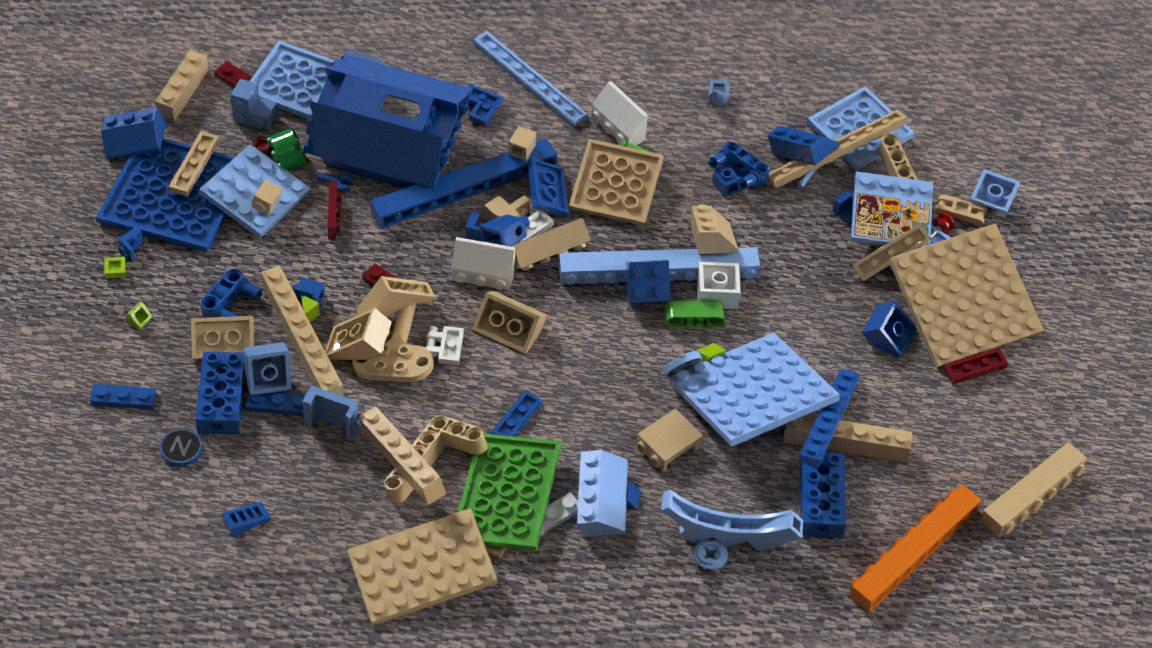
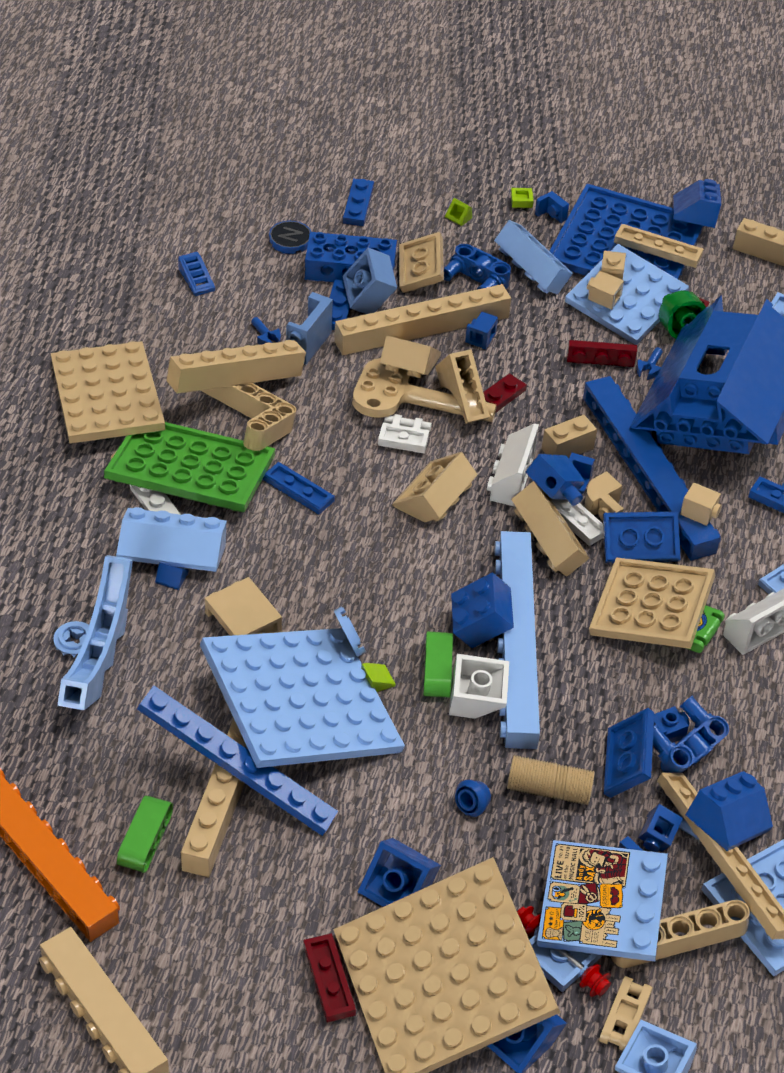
camera: 95 degrees right, 5 degrees down
(211, 255) = (533, 258): none -> light blue brick
(244, 189) = (613, 263): none -> tan brick
(250, 108) = (752, 288): medium blue brick -> none
(310, 308) = (457, 327): lime slope -> none
(323, 456) = (265, 333): none -> blue bar
(441, 231) = (570, 436): none -> tan brick
(711, 231) = (565, 686): tan slope -> none
(761, 198) = (629, 753): none -> blue tile
(791, 245) = (549, 780): none -> tan piece
(814, 289) = (472, 797): none -> blue cone
(818, 186) = (660, 829): none -> blue brick
(823, 497) = (133, 756): blue brick -> none
(879, 258) = (528, 888): tan plate -> none
(887, 482) = (145, 833): none -> bright green beam

